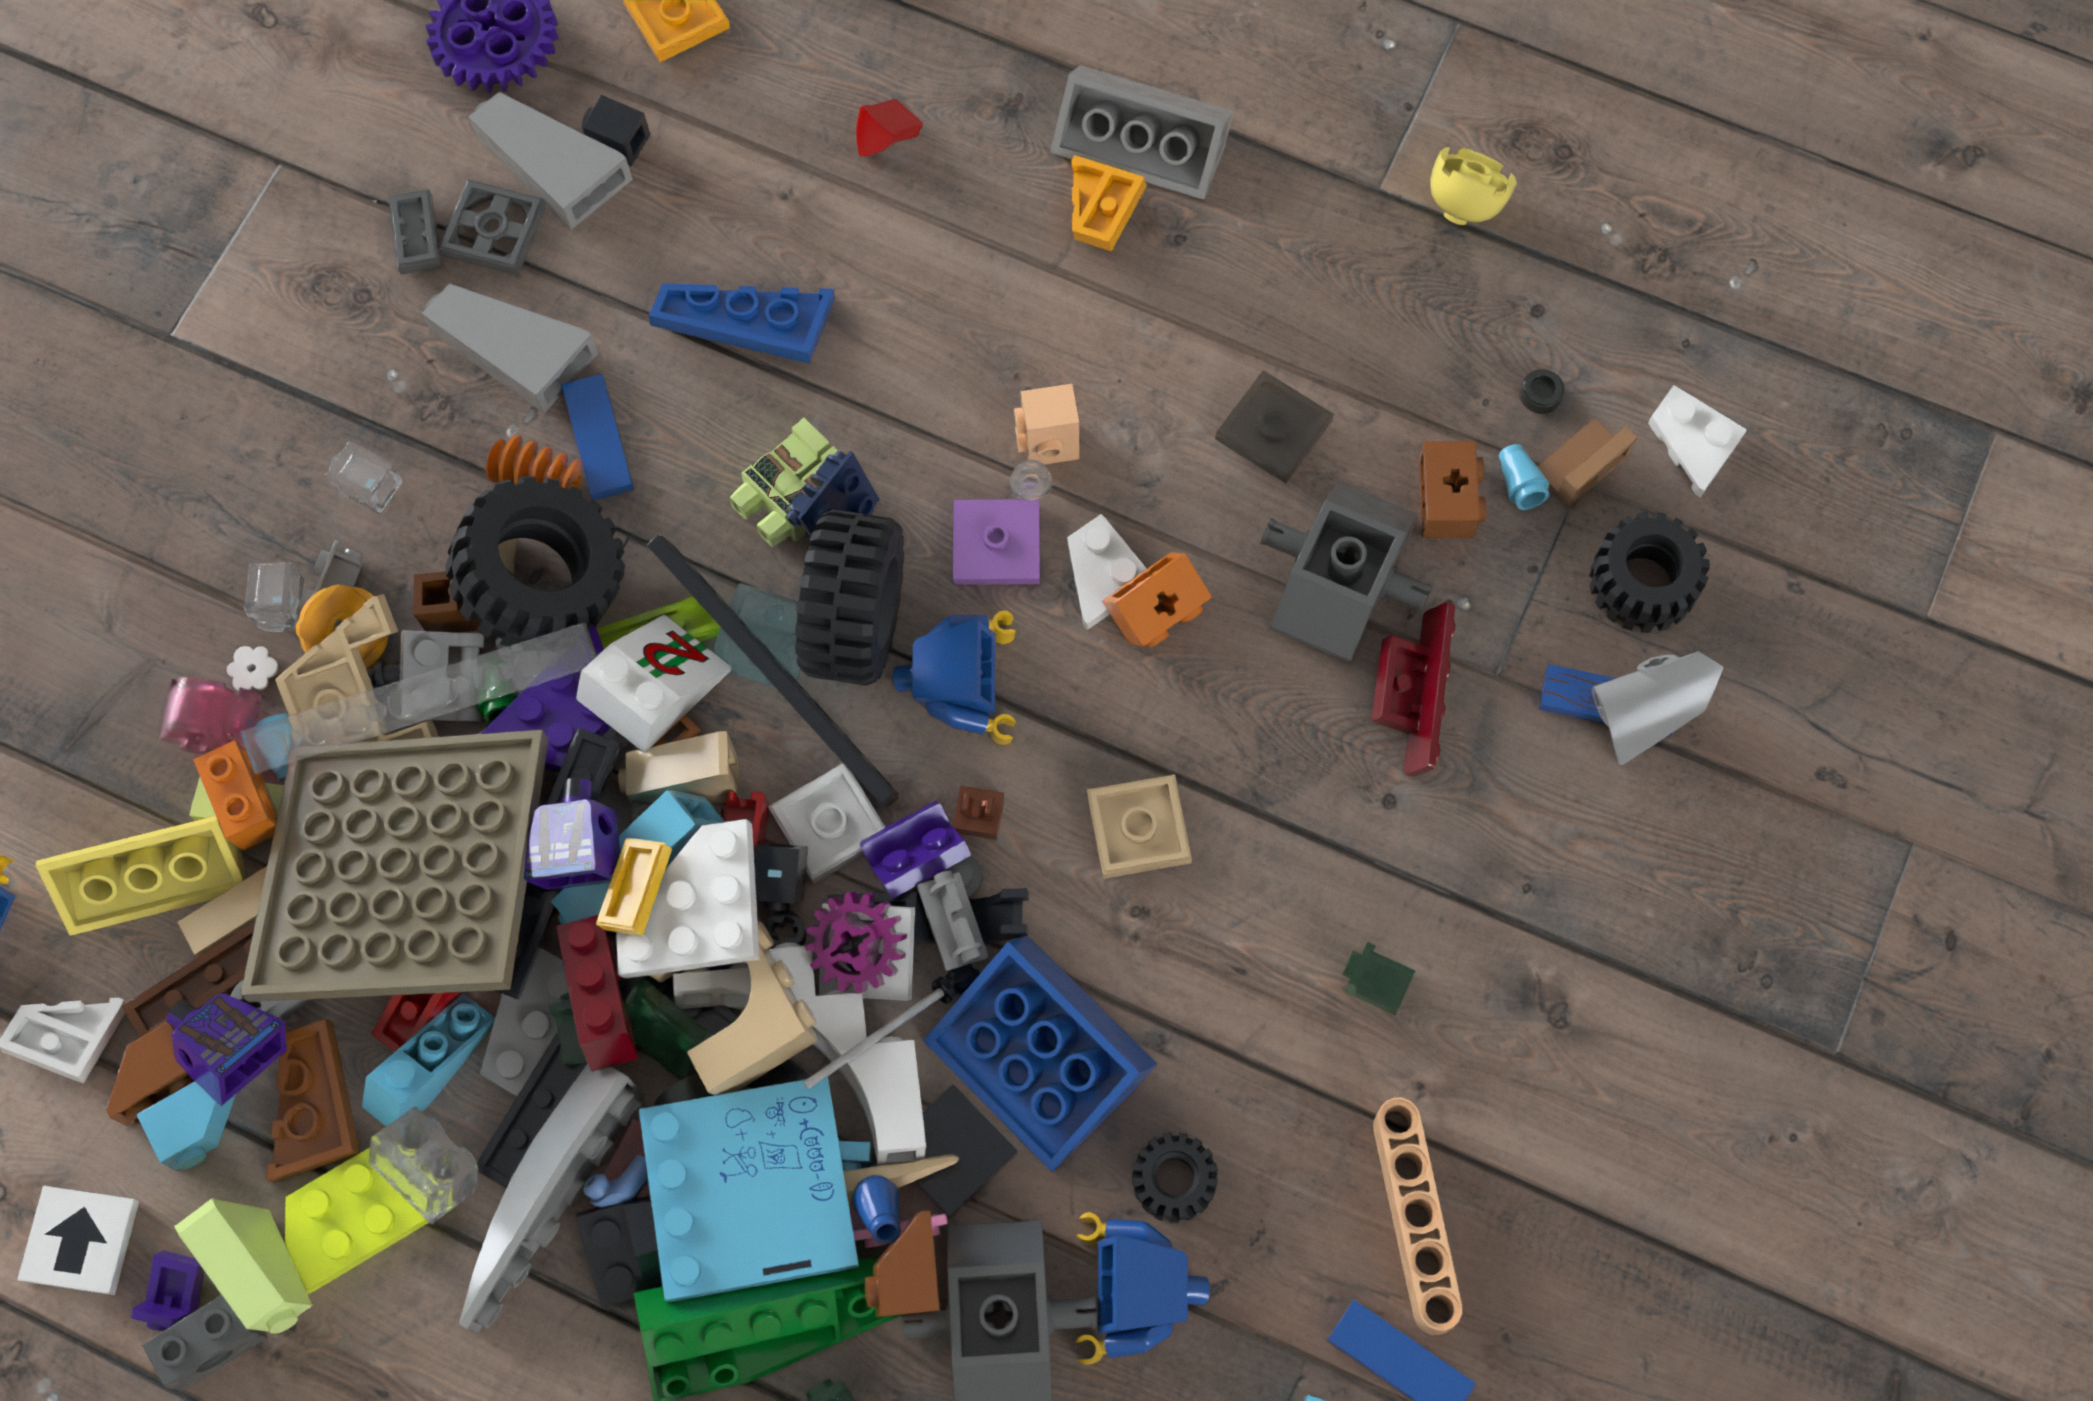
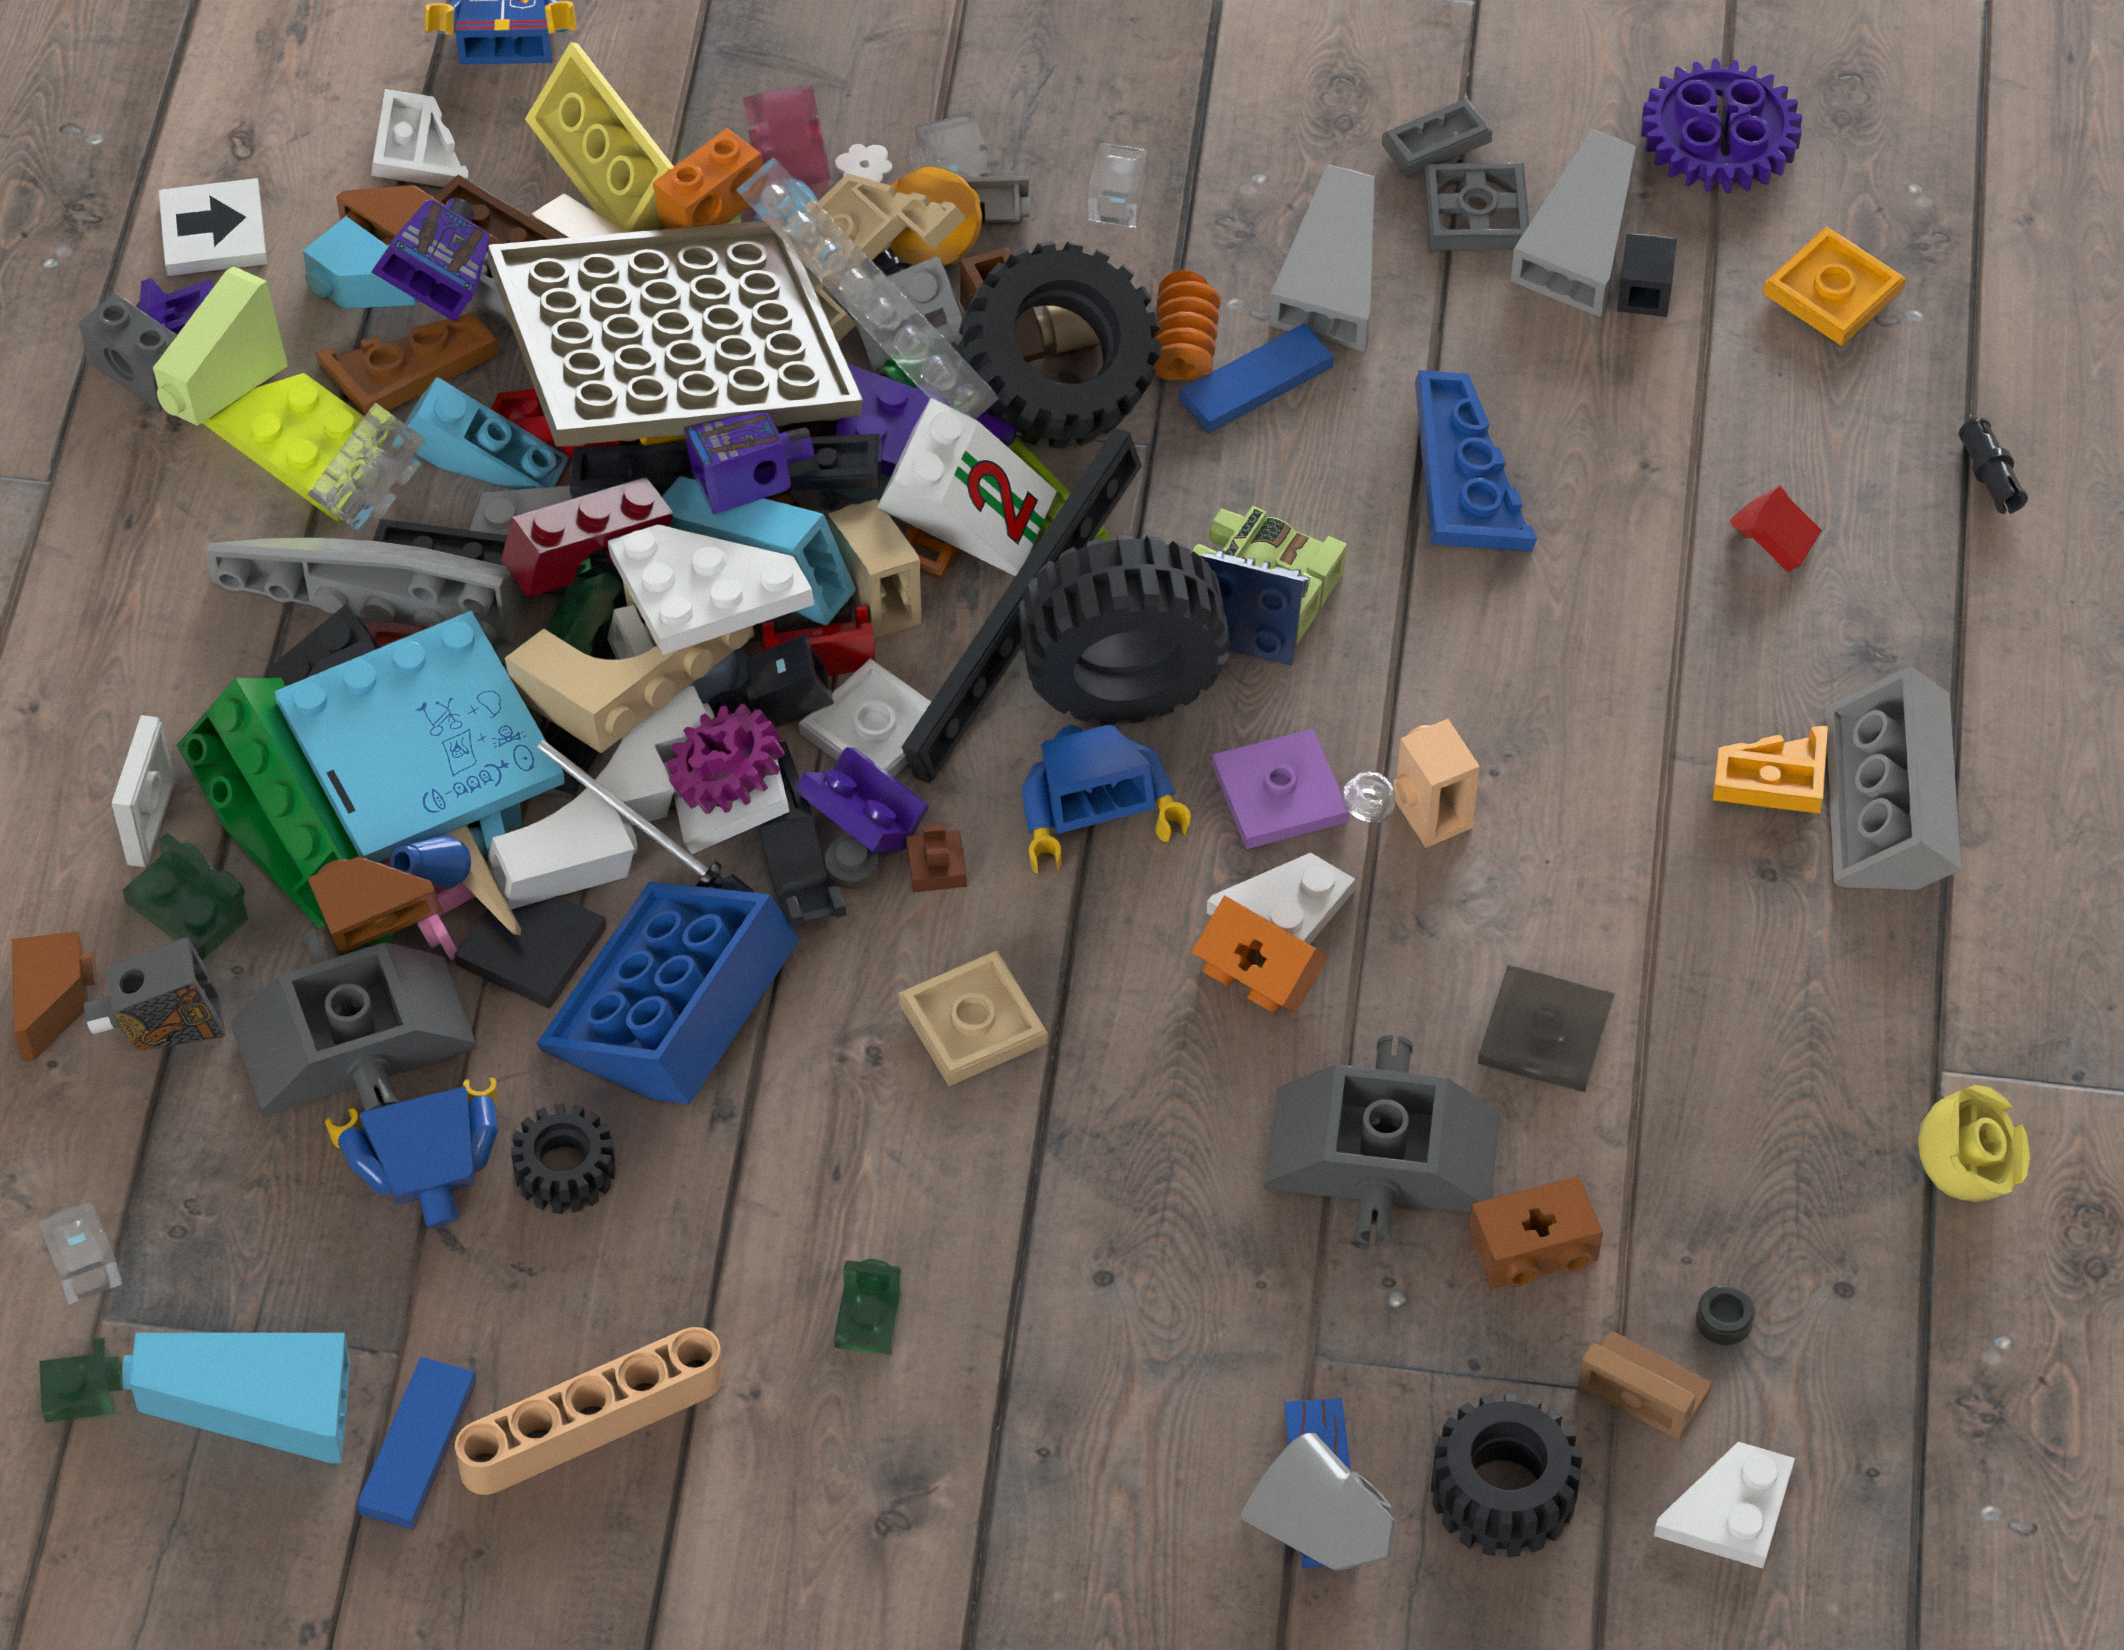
camera: 70 degrees right, 15 degrees down
(619, 1190) = (381, 624): medium blue arm -> none
(634, 886) = (704, 518): yellow tile -> none
(952, 920) = (792, 855): light grey hinge -> none
(1413, 687) = (1250, 1248): dark red bracket -> none
(1523, 479) = (1586, 1313): medium azure cone -> none

